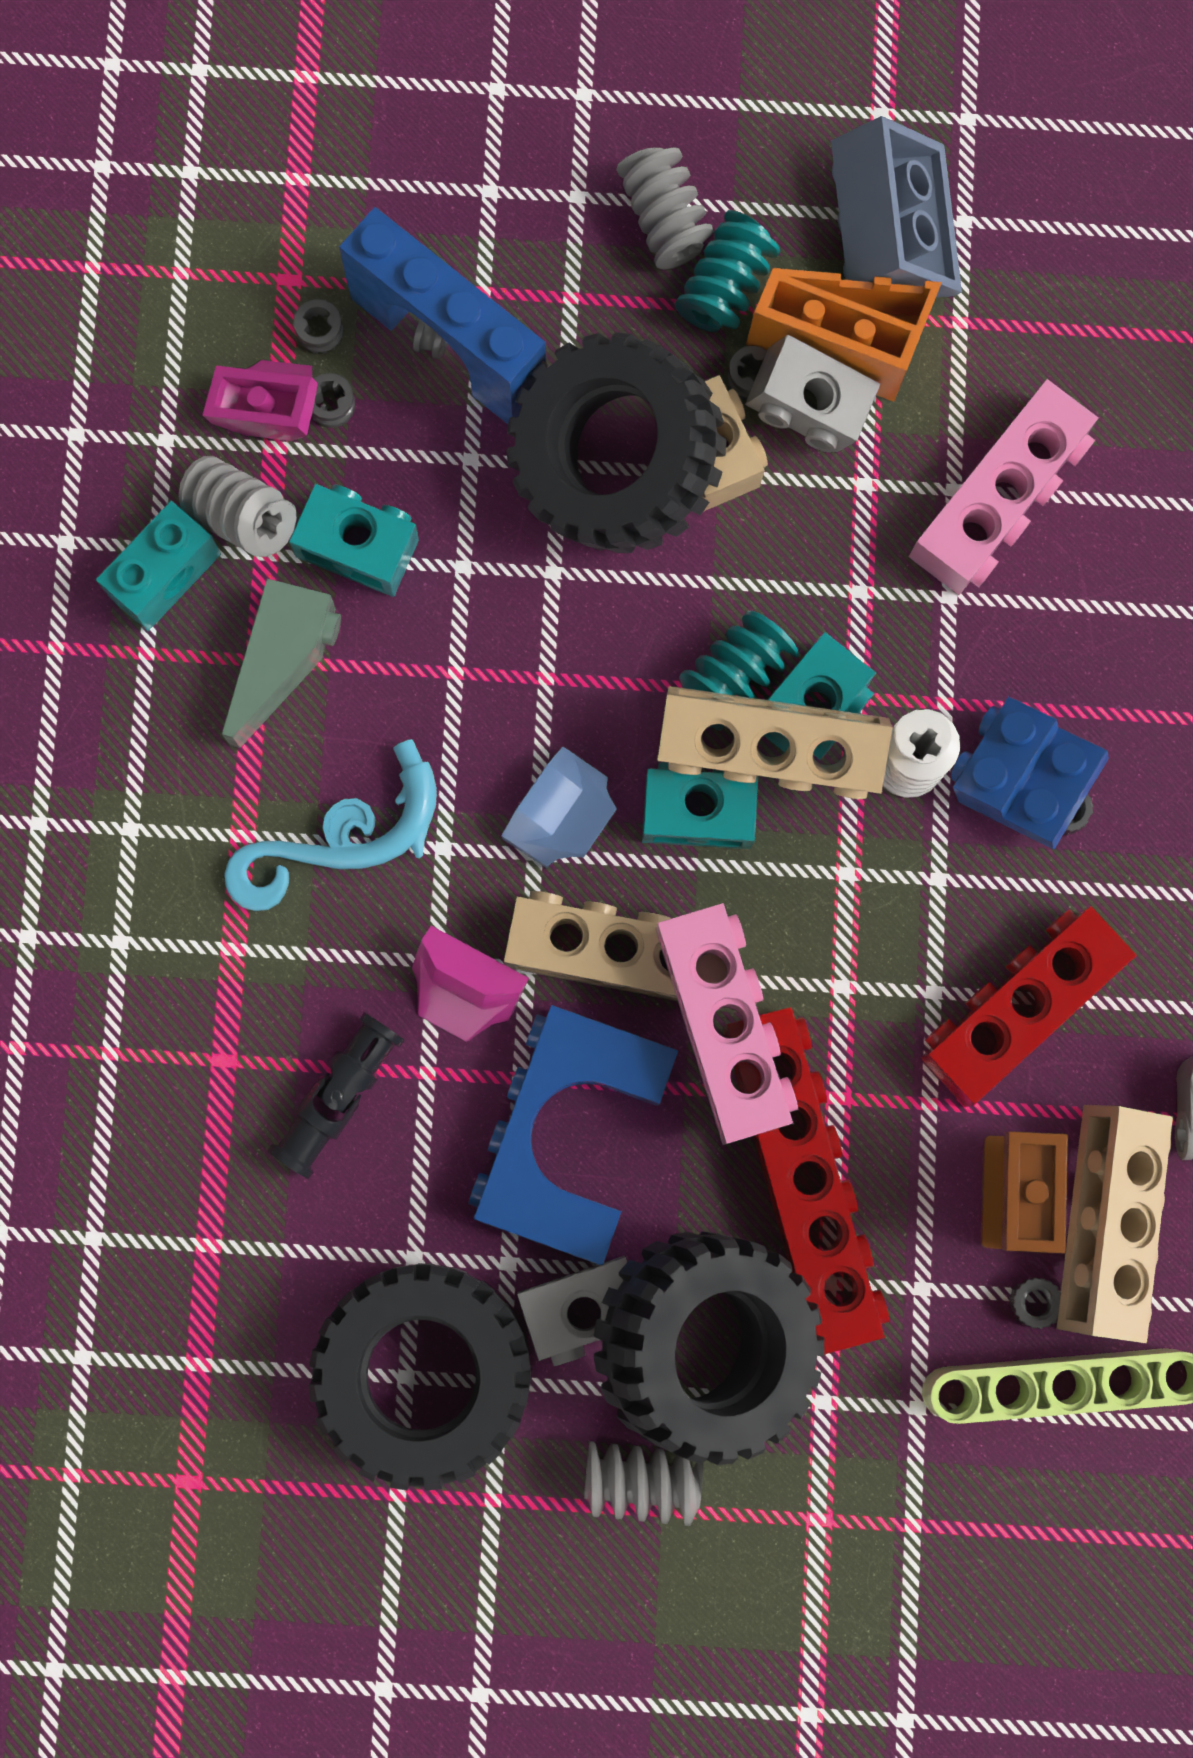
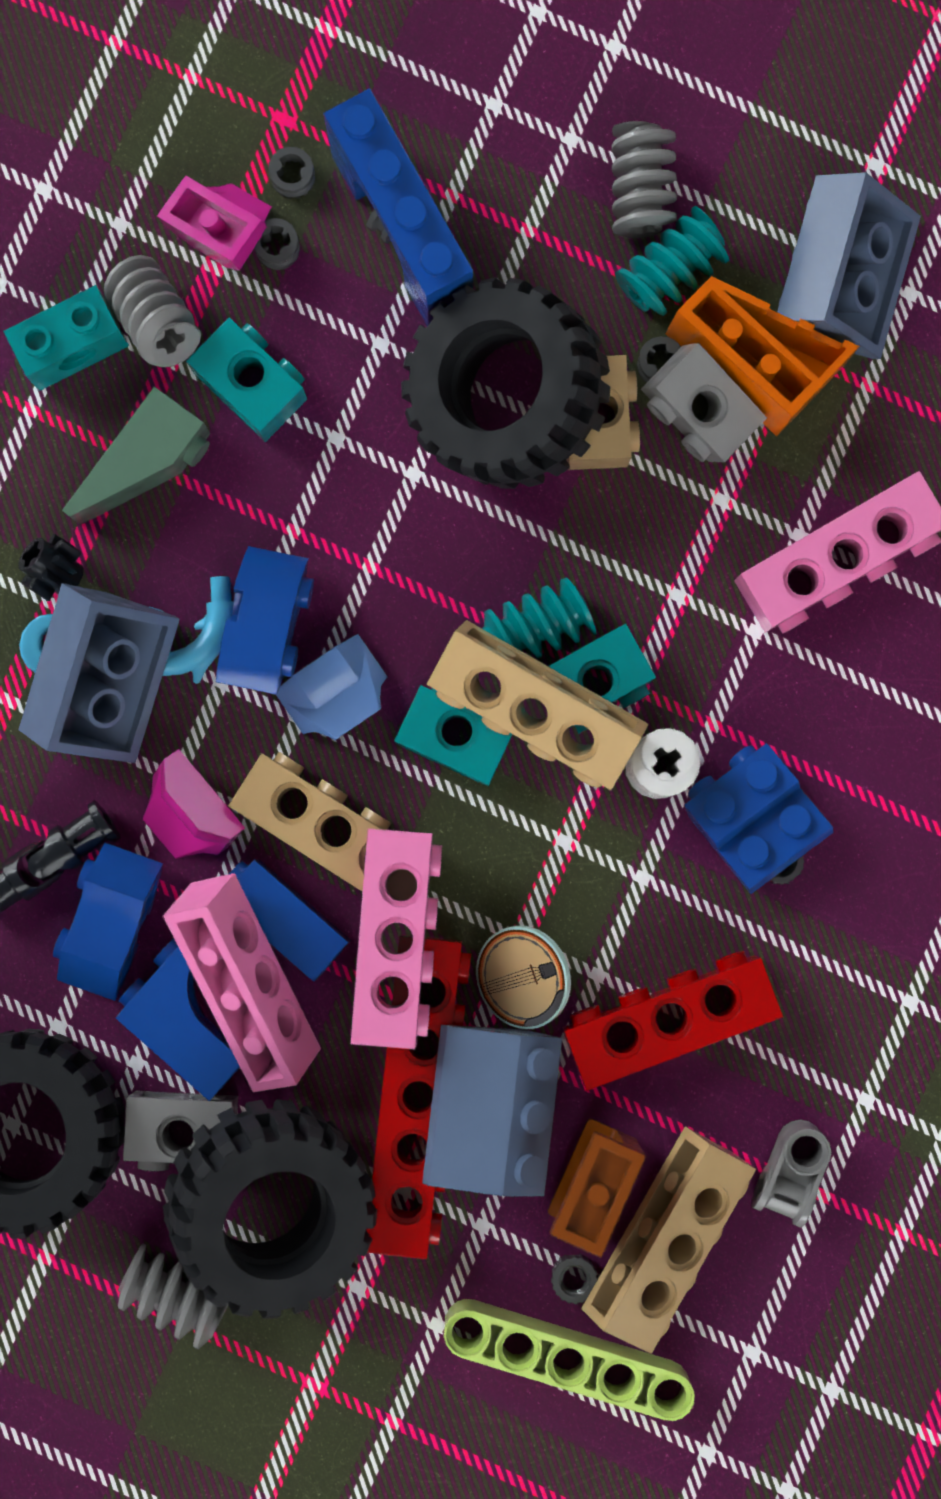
camera: 30 degrees right, 5 degrees up
(230, 796) = (50, 565): none -> black gear
(320, 884) = (97, 675): none -> sand blue slope
(426, 1127) = (111, 910): none -> blue brick
(465, 766) = (264, 616): none -> blue brick
(591, 1129) = (242, 982): none -> bright pink brick
(864, 1019) = (523, 977): none -> piece
(890, 1161) = (492, 1110): none -> sand blue slope

